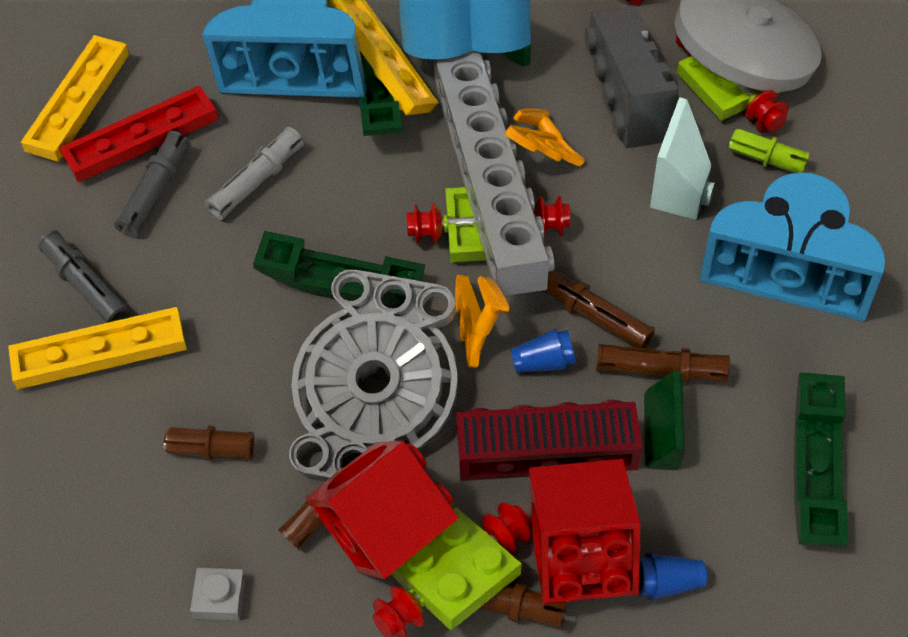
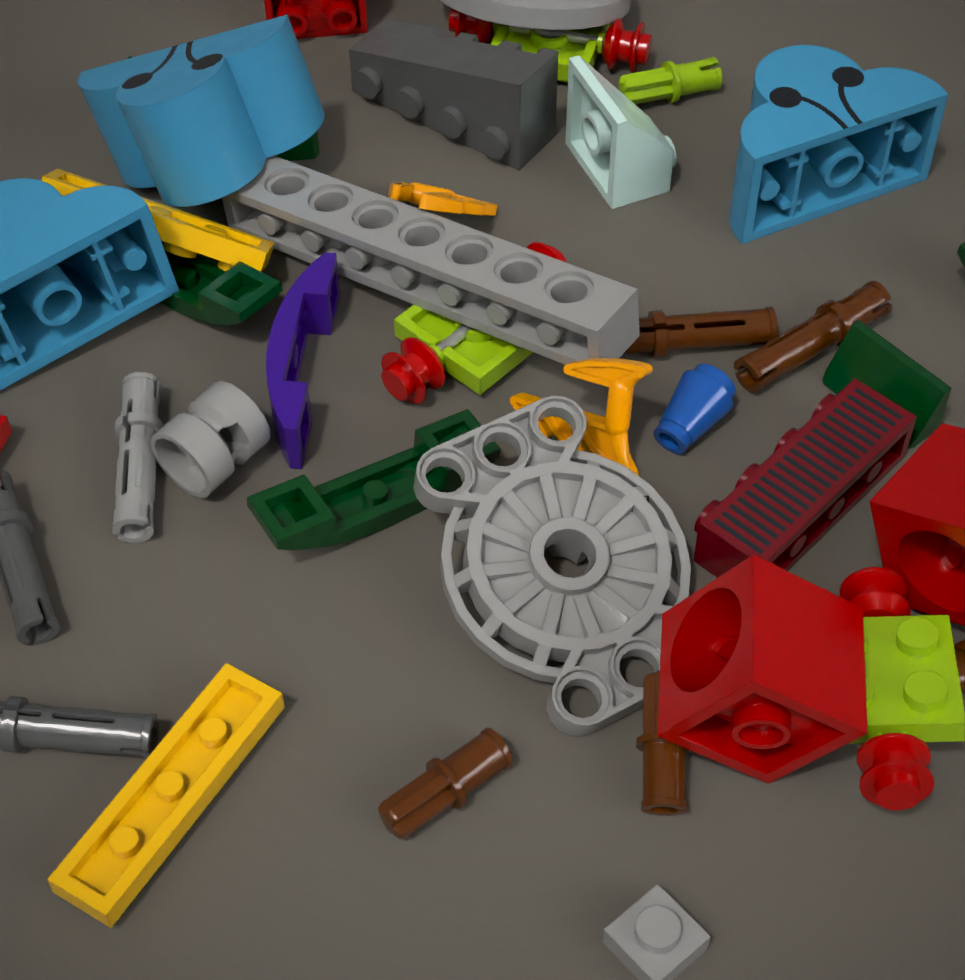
camera: 45 degrees left, 5 degrees down
(273, 190) = (207, 442): none -> light grey wheel
(416, 149) = (305, 310): none -> dark purple slope

